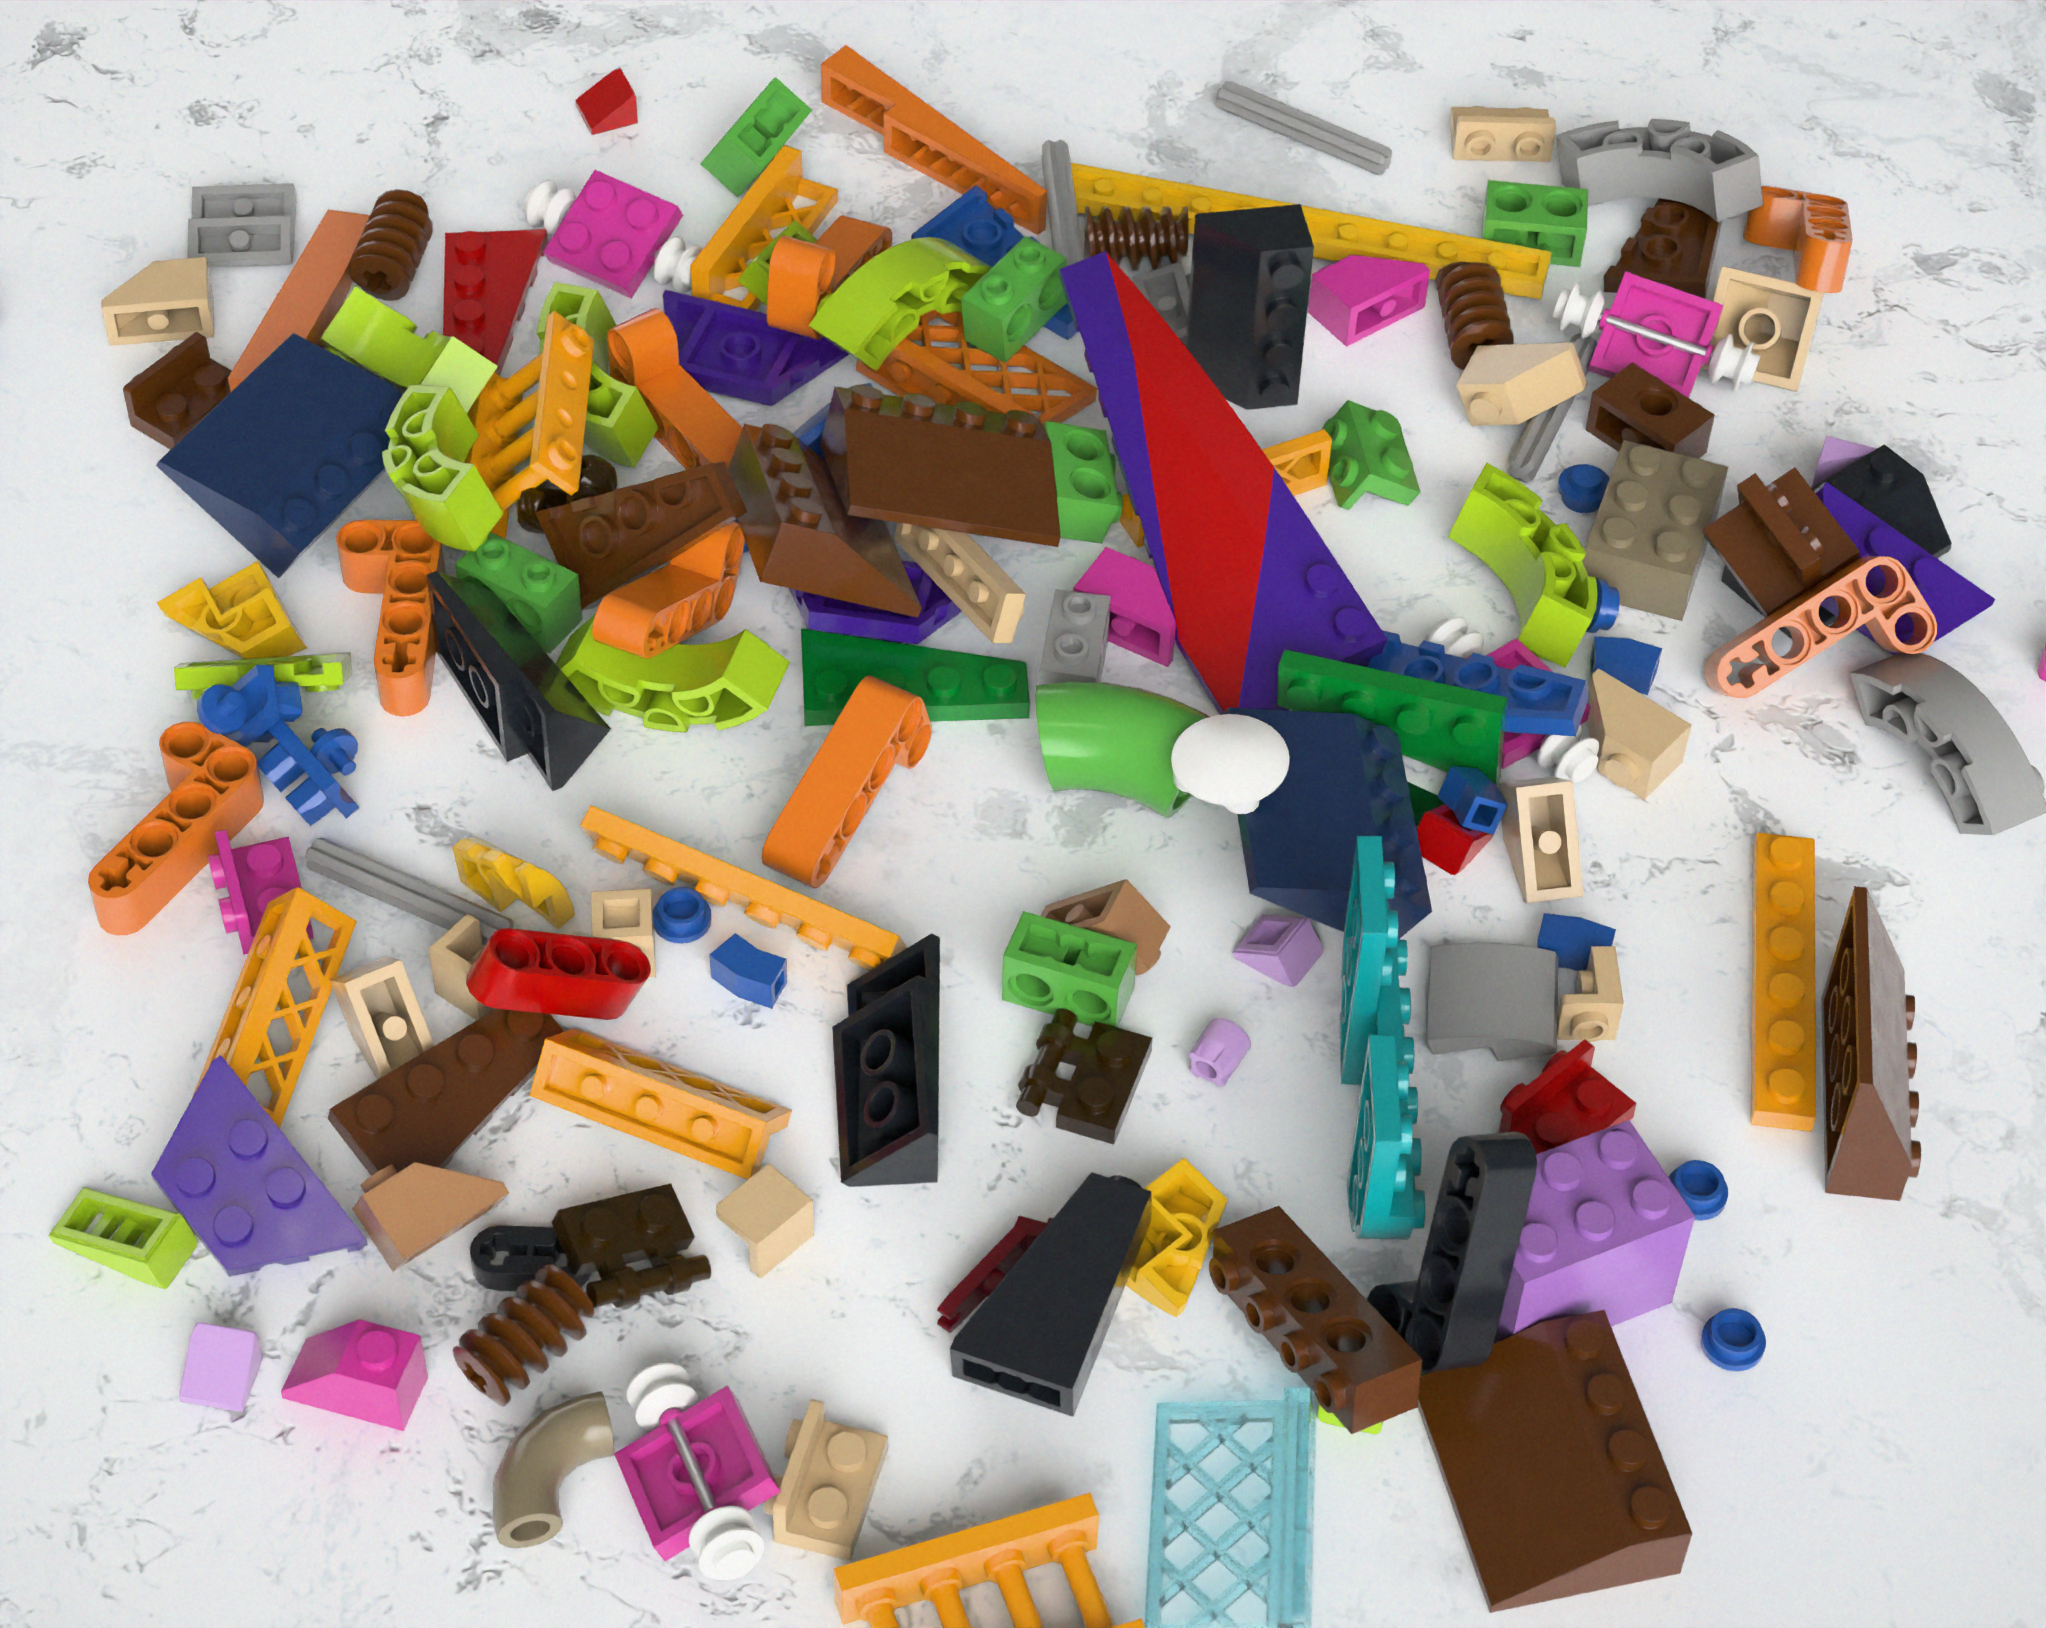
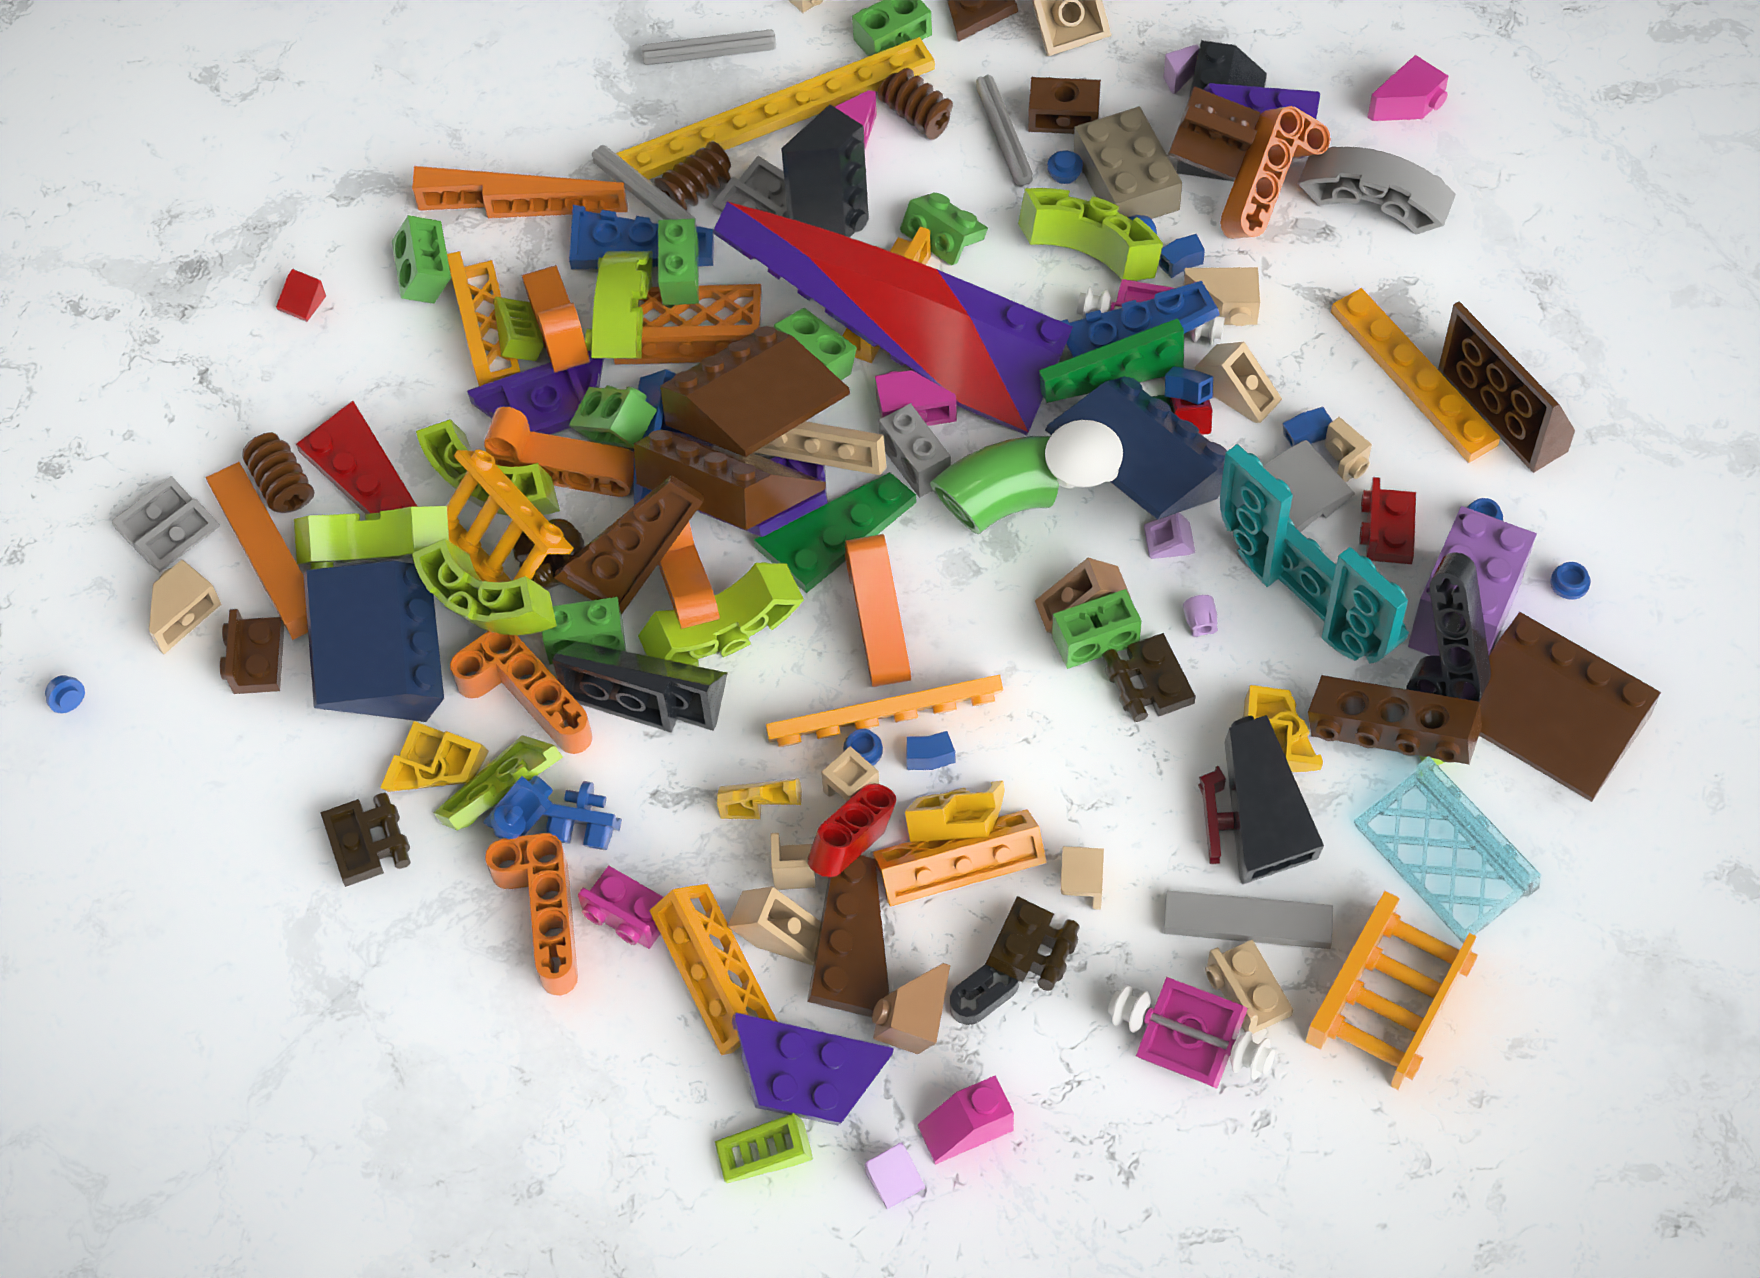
camera: 35 degrees left, 10 degrees up
(74, 631) = (352, 841): none -> dark brown plate
(399, 888) = (704, 846): light grey axle -> none
(522, 1331) = (1030, 1033): reddish brown piece -> none
(539, 1461) = (1107, 1087): dark tan cylinder -> none
(612, 233) = (398, 376): dark pink plate -> none
(703, 1053) = (955, 814): none -> yellow slope
(778, 397) = (613, 416): none -> bright green brick
(890, 1071) = (1060, 746): black slope -> none
(913, 1415) = (1248, 919): none -> light grey tile
(1518, 381) = (982, 127): tan slope -> none
(1658, 331) = (1024, 50): dark pink plate -> none

